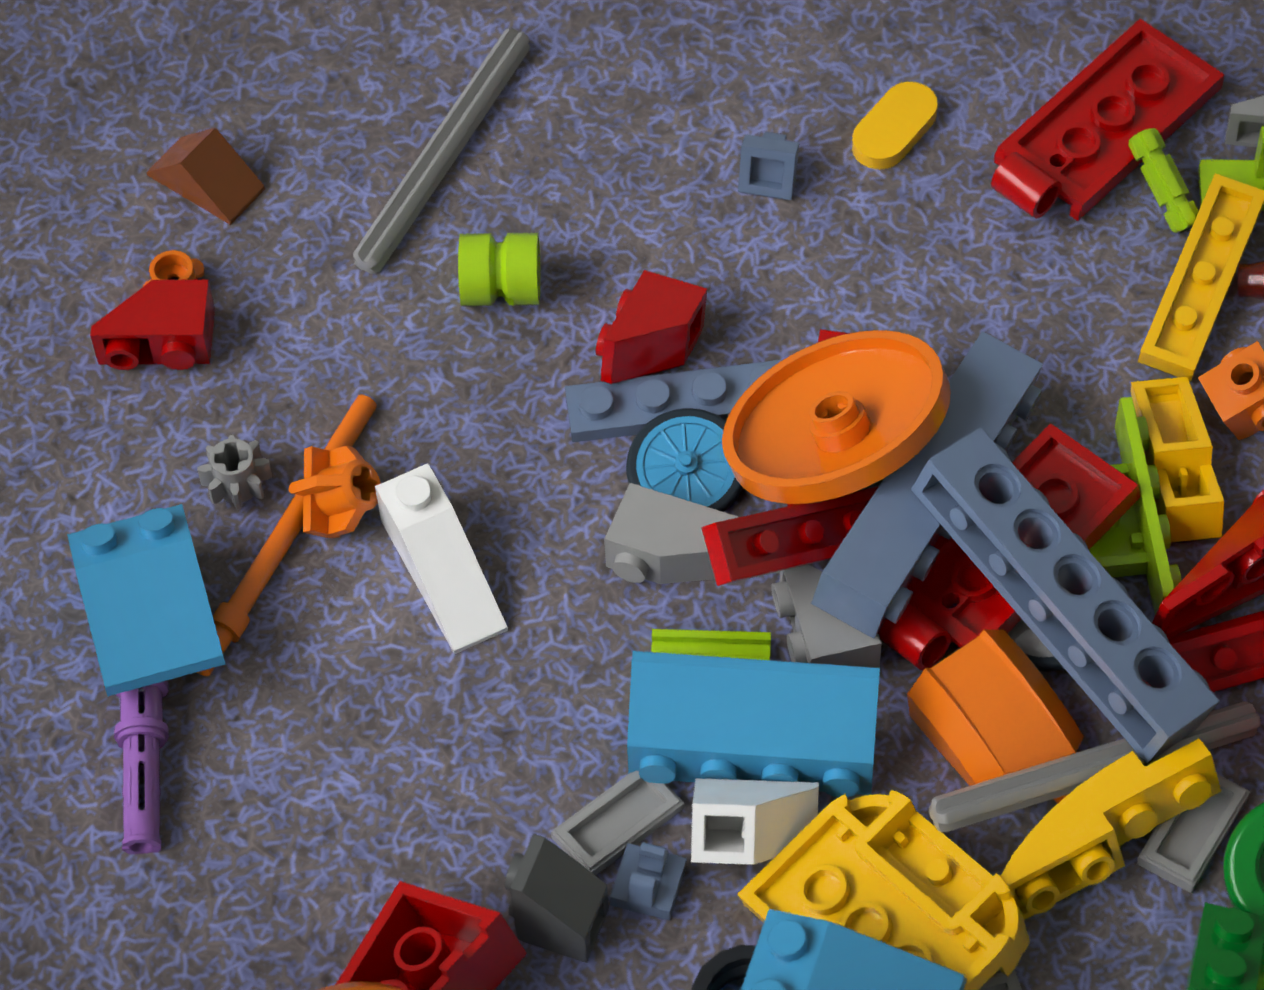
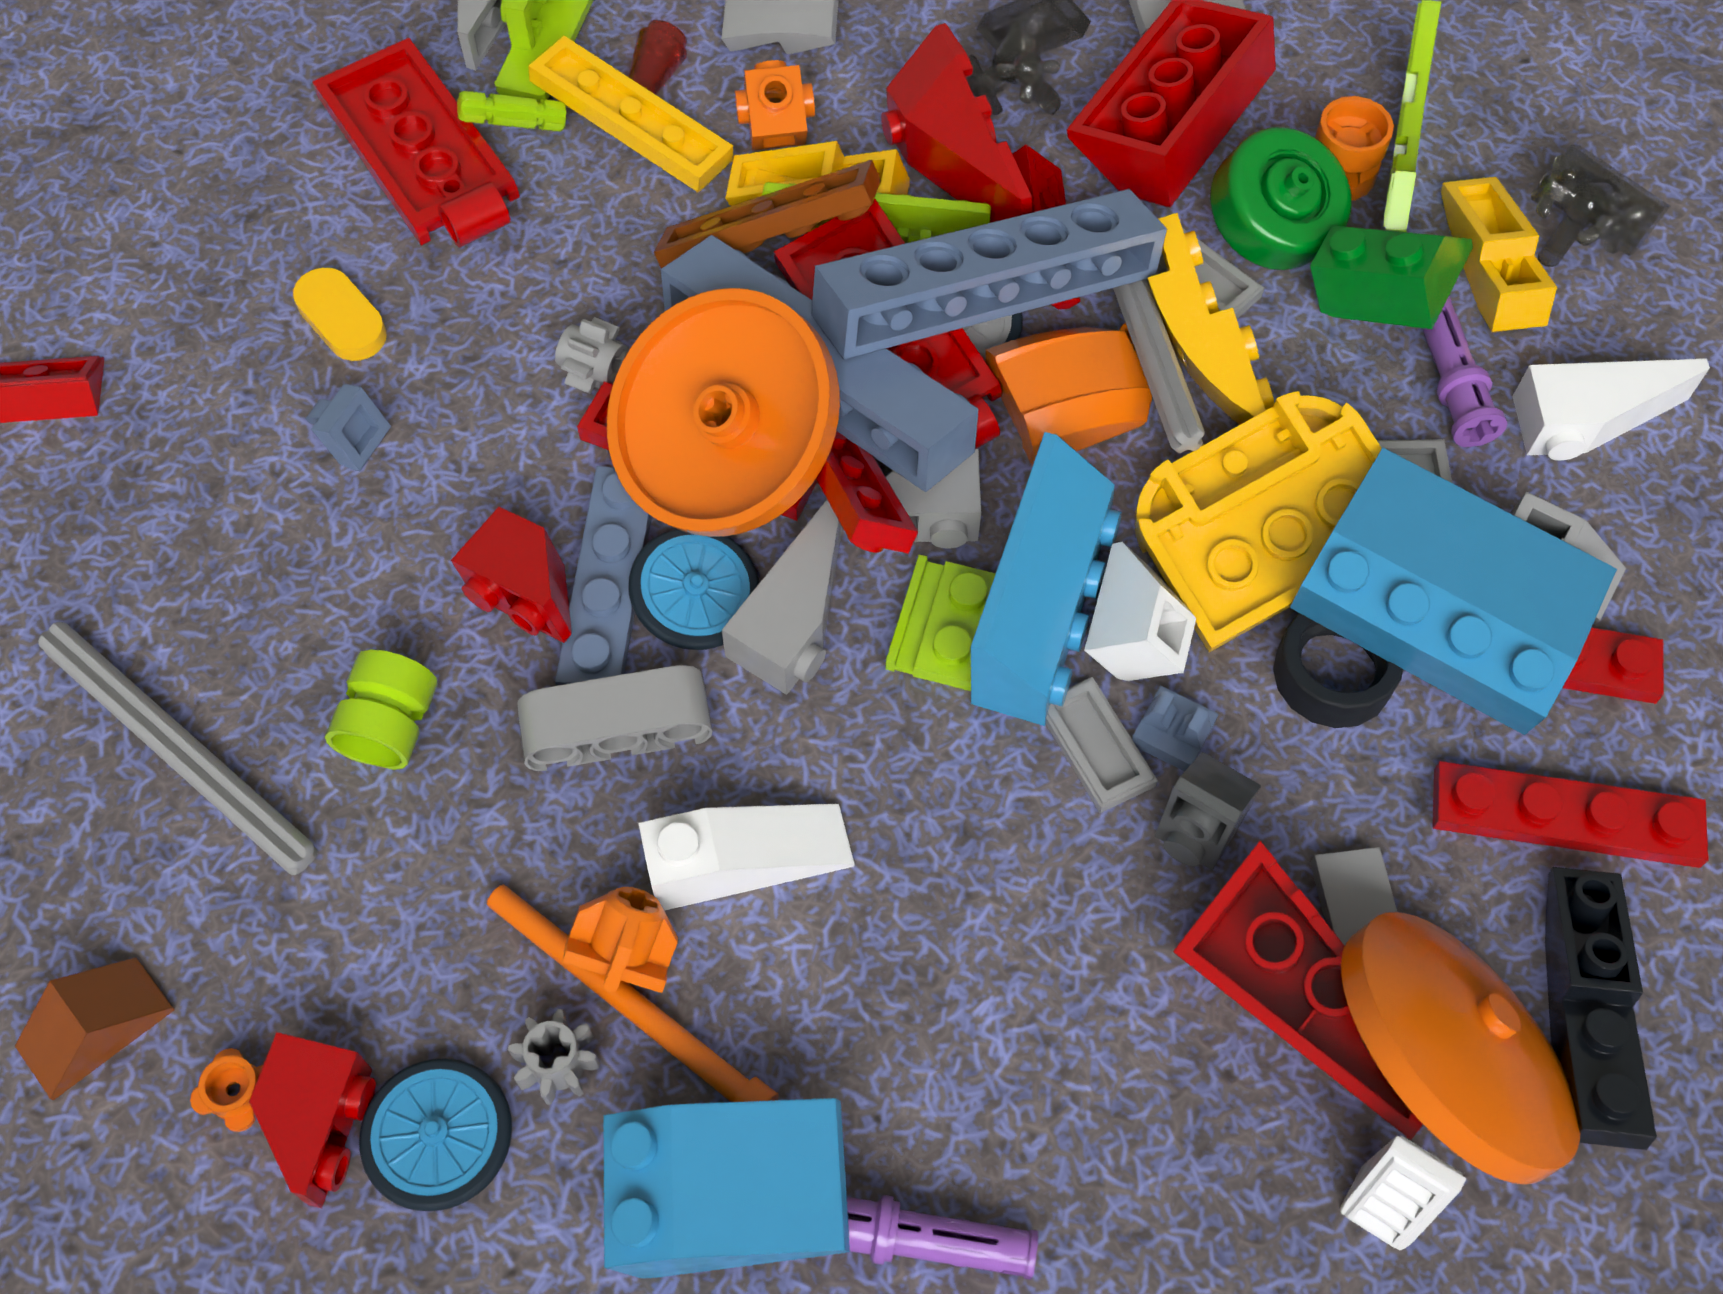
camera: 80 degrees left, 5 degrees up
(163, 415) = (435, 1134): none -> dark azure wheel
(541, 435) = (613, 715): none -> light grey beam
(904, 312) = (590, 354): none -> light grey gear
(1092, 410) = (787, 211): none -> dark orange plate

